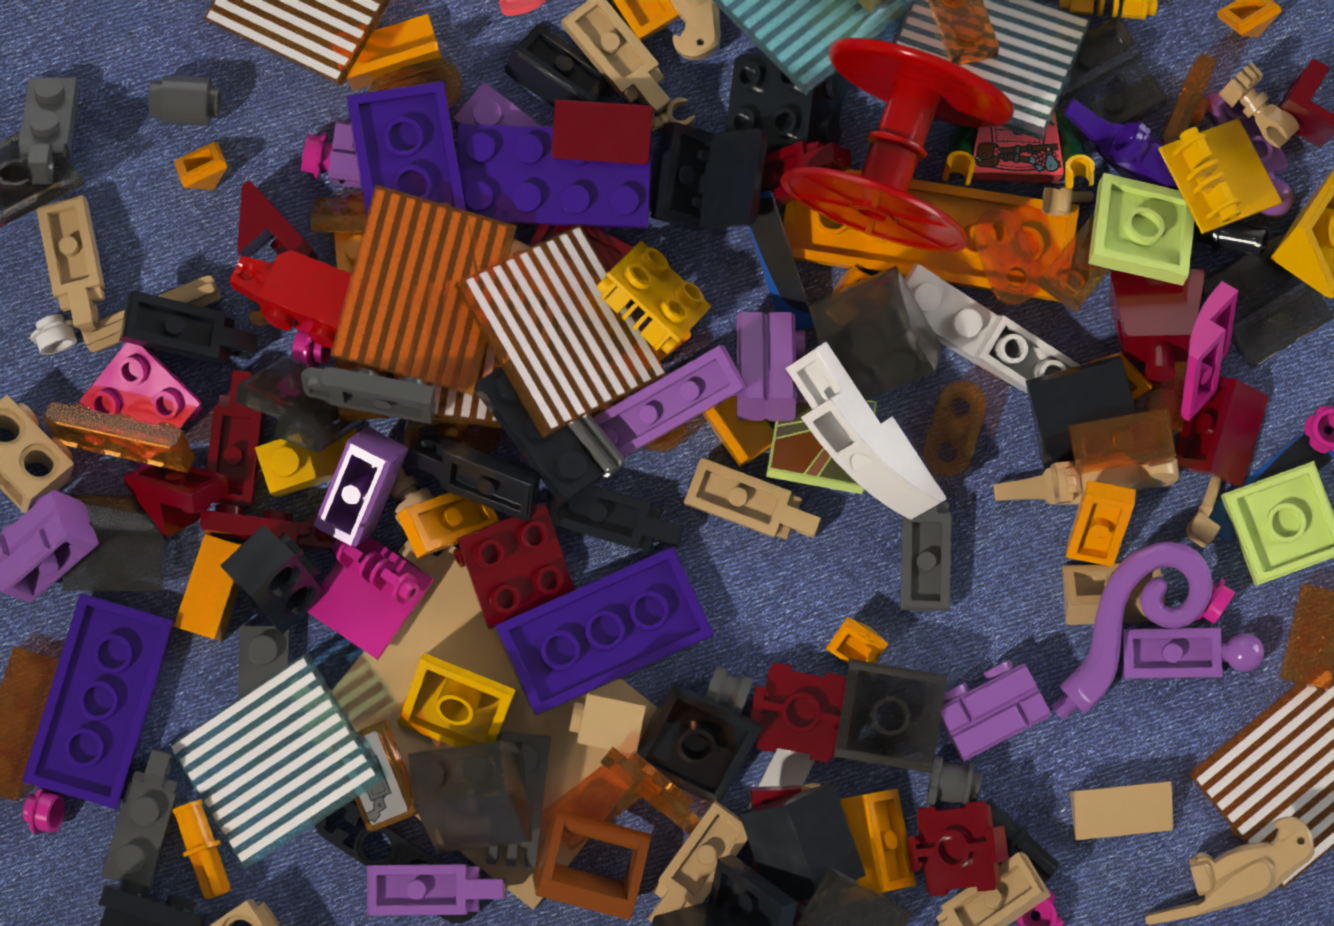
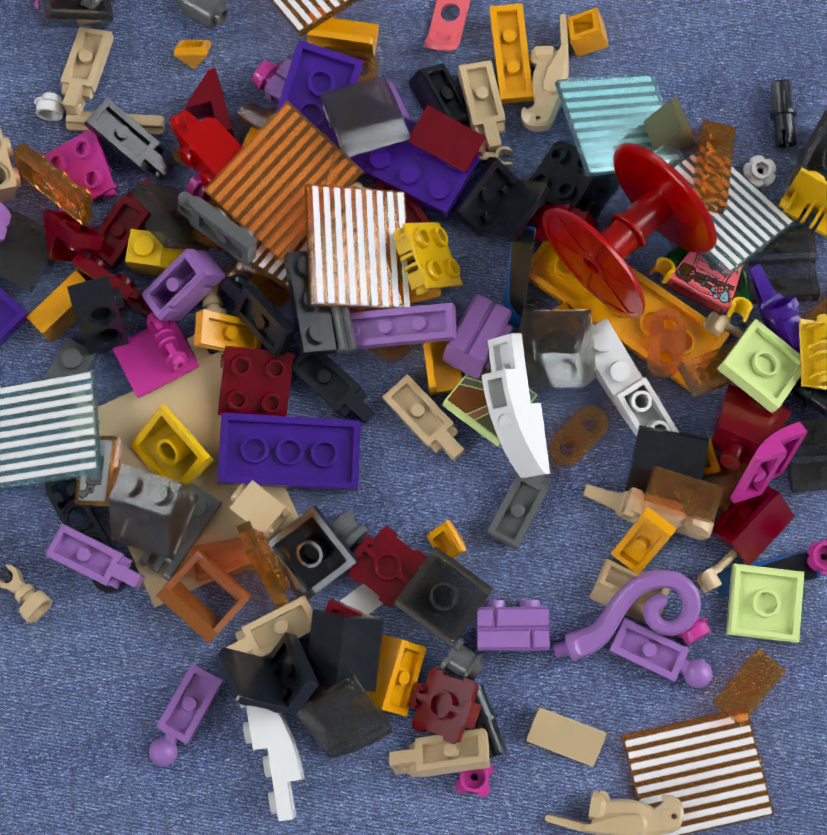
camera: 30 degrees right, 5 degrees down
(484, 155) = (364, 116): none -> clear smoke slope

